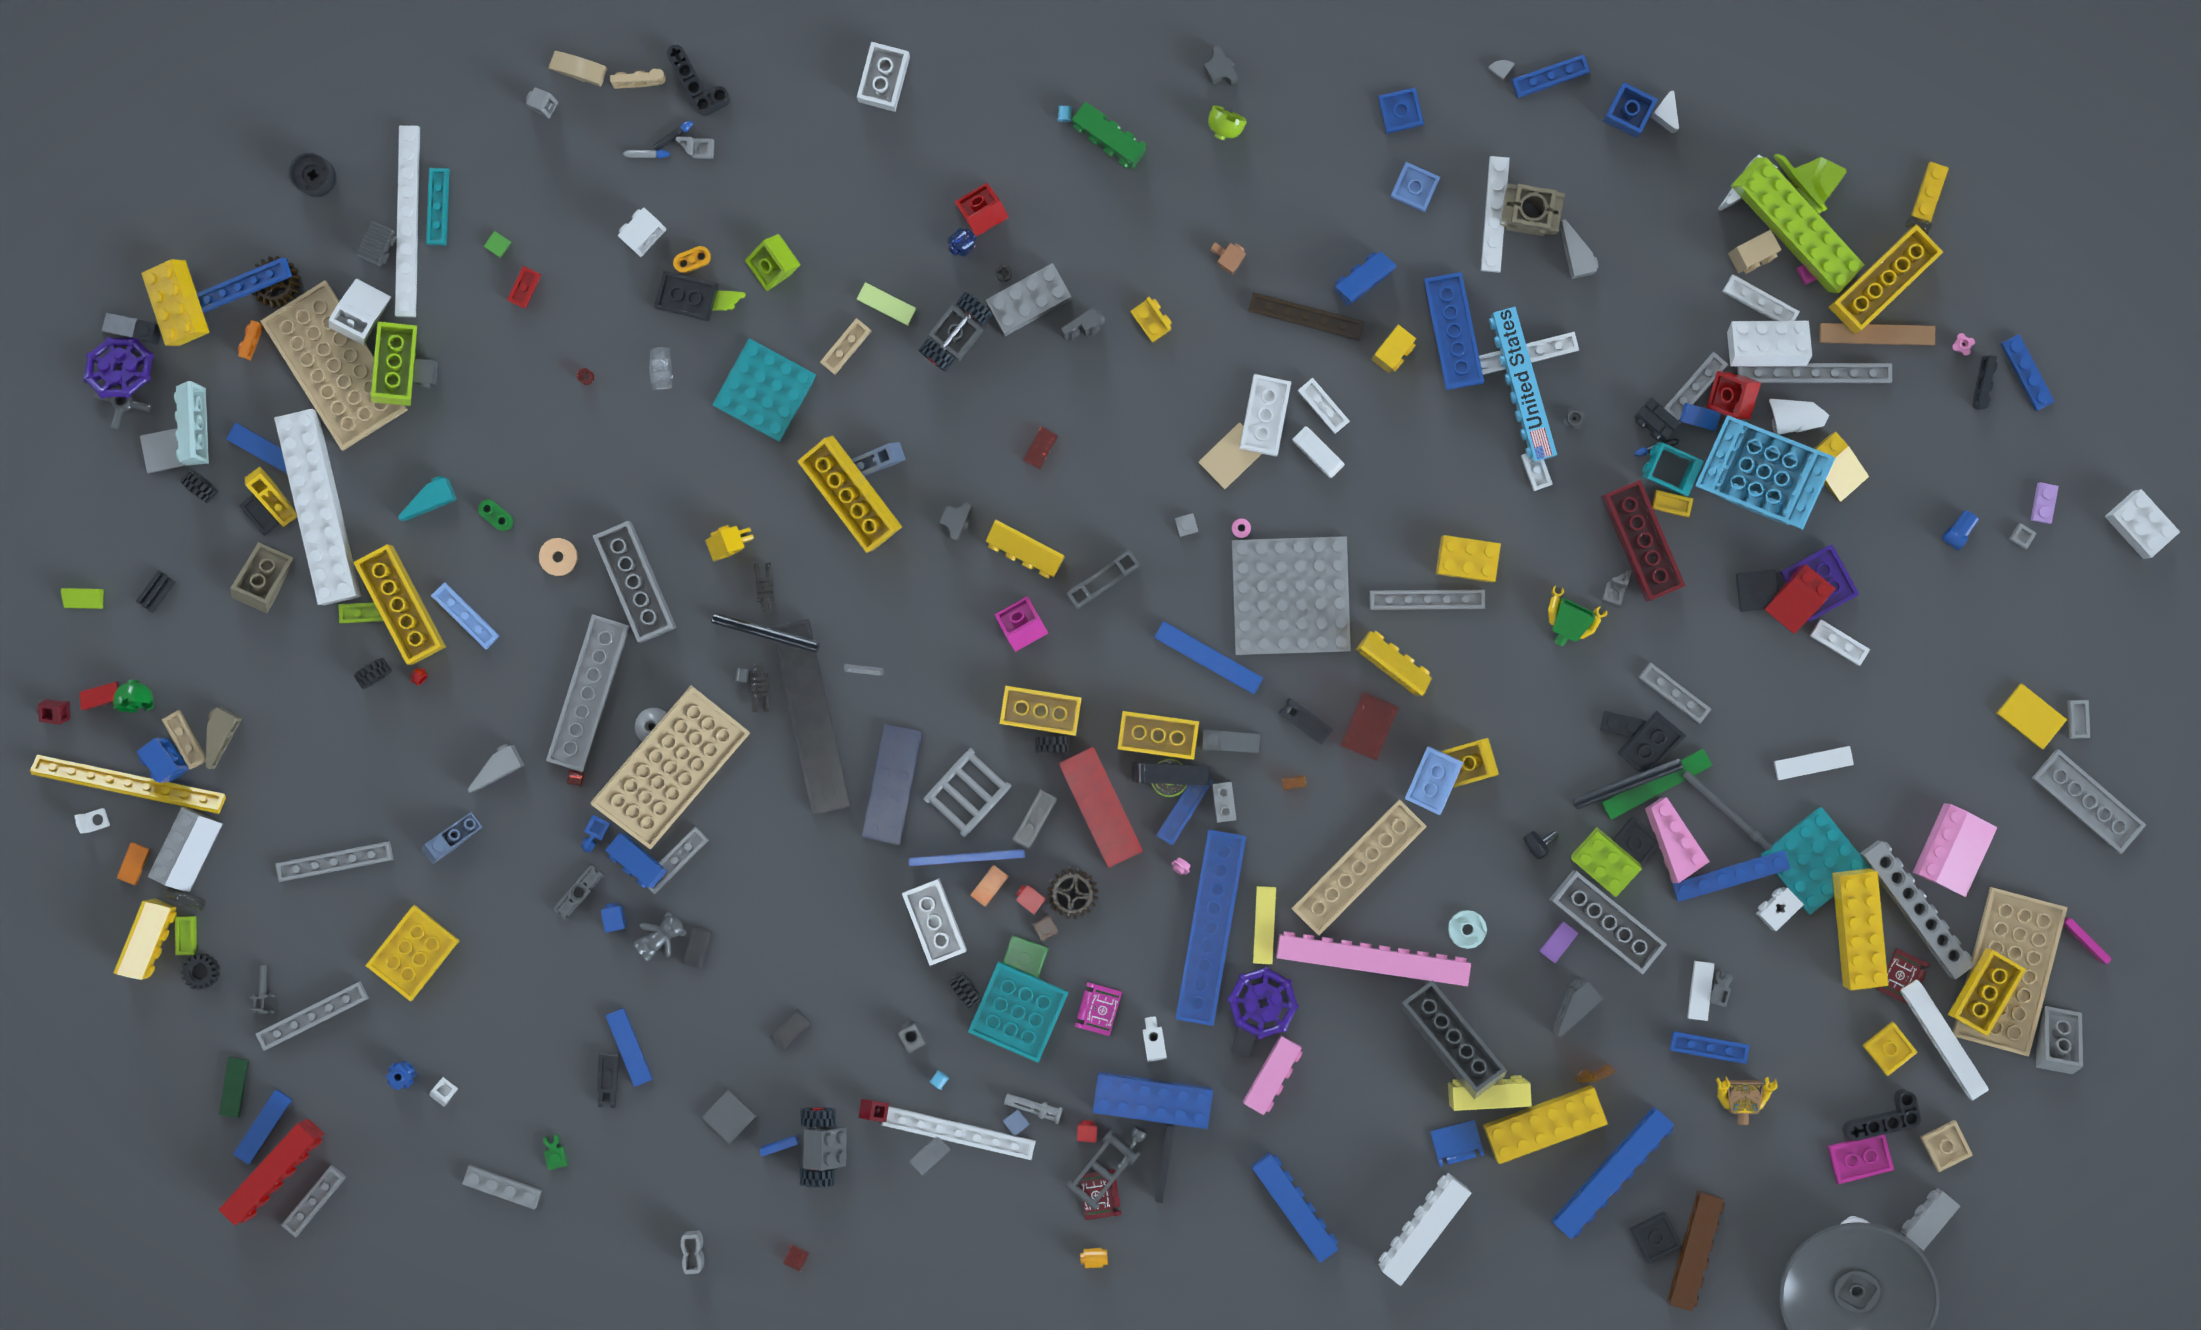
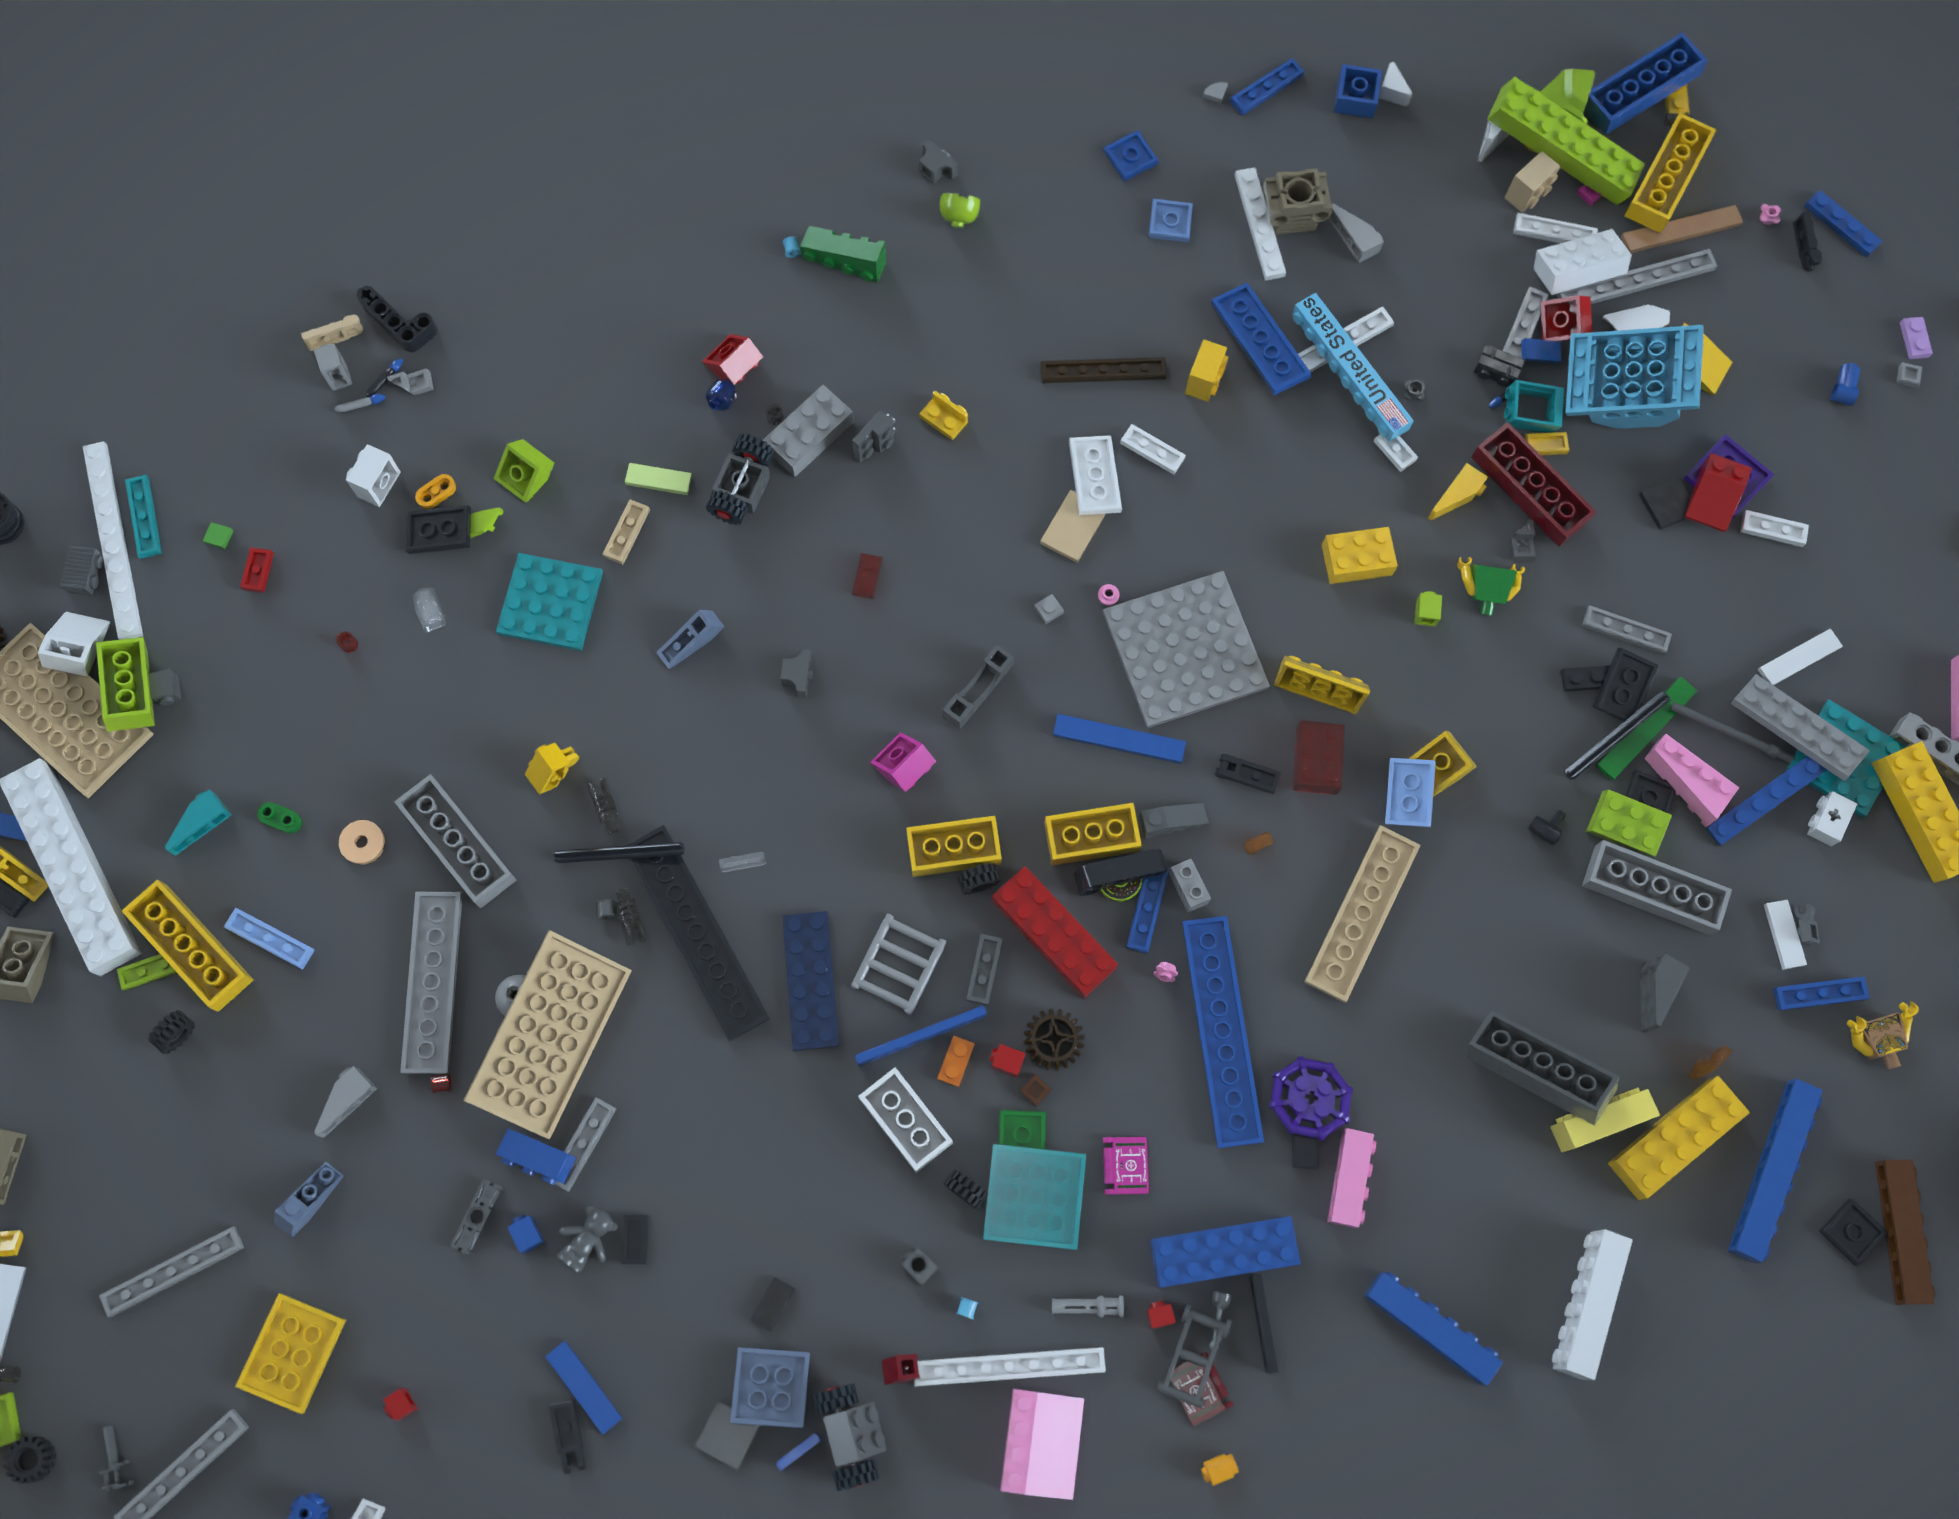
camera: 20 degrees left, 15 degrees down
(418, 676) = (228, 1022): red plate -> none
(486, 1017) = (399, 1404): none -> red plate
(541, 102) = (234, 380): light grey slope -> none
(578, 68) = (267, 339): tan slope -> none
(597, 829) = (479, 1134): blue plate -> none
(630, 116) = (333, 366): none -> light grey brick
(770, 1092) = (770, 1388): none -> sand blue plate
(849, 494) = (672, 677): yellow brick -> none
(883, 76) = (592, 260): white brick -> none
(929, 1155) = (983, 1405): clear slope -> none
(965, 1197) = (1042, 1444): none -> bright pink slope
(1016, 1122) = (1073, 1331): sand blue tile -> none
(1025, 549) = (882, 679): yellow slope -> none
(1154, 1049) = (1207, 1189): white torso -> none
(1229, 258) = (1005, 334): nougat brick -> none
(1264, 925) = (1281, 1010): light yellow tile -> none
(1318, 452) = (1163, 495): white beam -> none
(1364, 277) = (1151, 314): blue slope -> none
(1373, 959) = (1415, 1010): bright pink brick -> none
(1426, 599) = (1331, 611): light grey tile -> none
(1456, 1142) = (1587, 1192): blue piece -> none
(1461, 919) = (1497, 955): light aqua tile -> none
(1510, 624) = (1428, 609): none -> lime brick
(1558, 942) = (1610, 929): medium lavender tile -> none
(1581, 525) = (1461, 491): none -> yellow slope
(1783, 825) = (1800, 727): none -> light grey plate
(1897, 183) = (1644, 83): none -> blue brick

